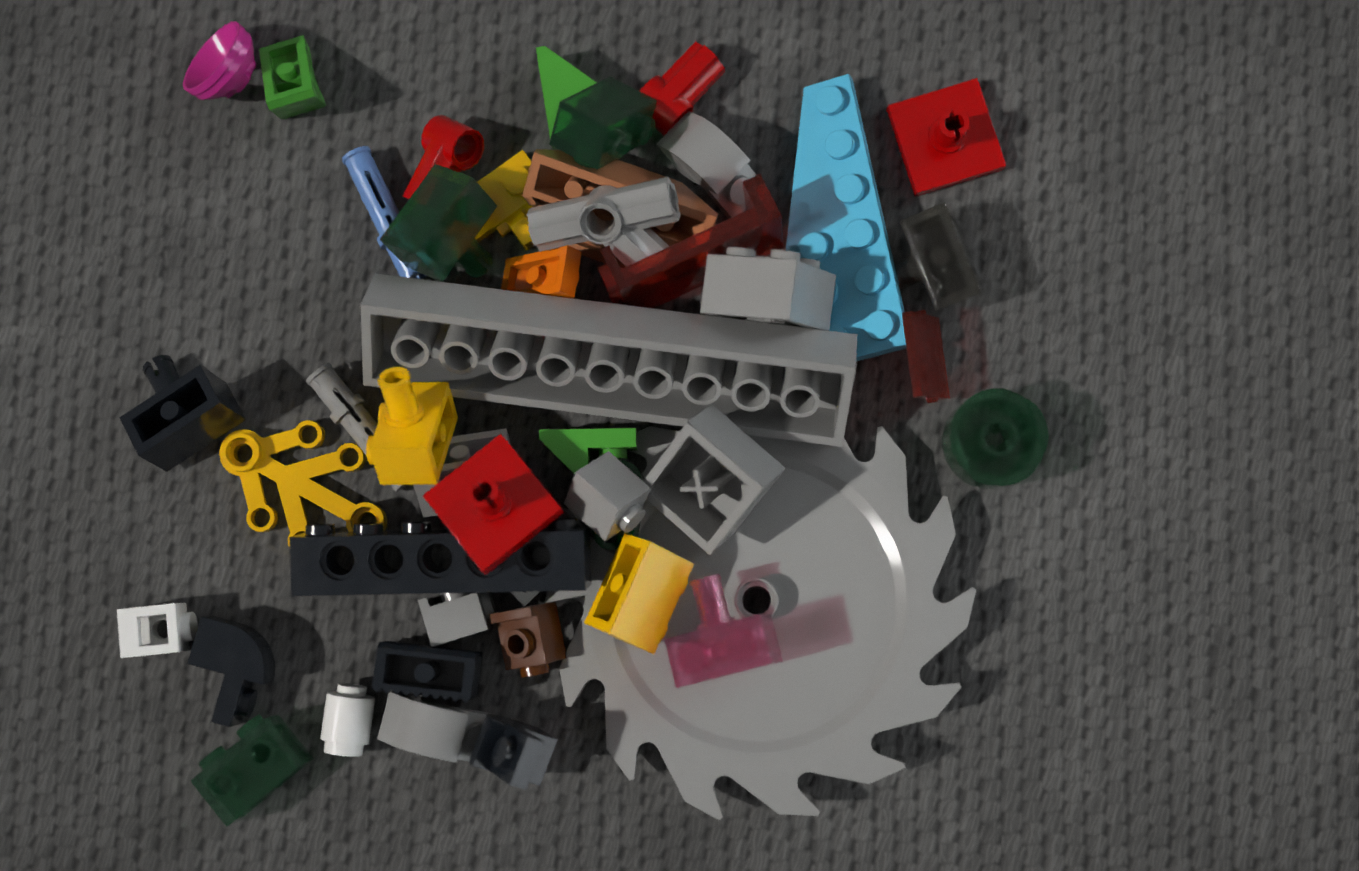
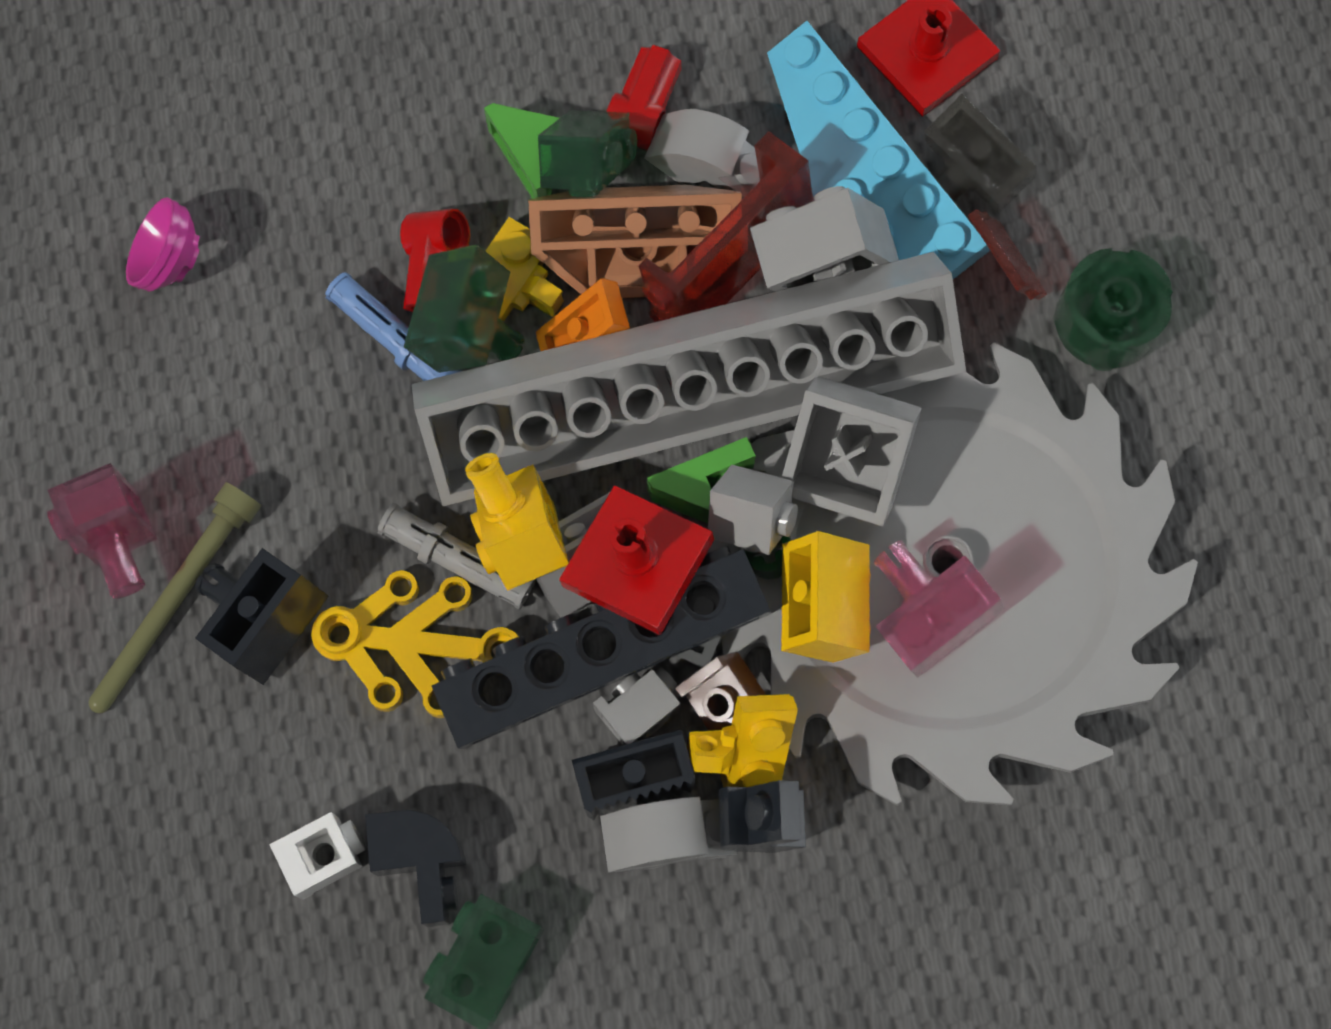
camera: 25 degrees left, 10 degrees down
(83, 286) = (105, 522): none -> clear pink brick
(196, 314) = (231, 512): none -> olive piece
(289, 78) = (241, 237): bright green slope -> none
(347, 720) = (566, 867): white brick -> none
(525, 692) = (752, 747): none -> yellow hinge
(628, 234) = (657, 212): light grey piece -> none

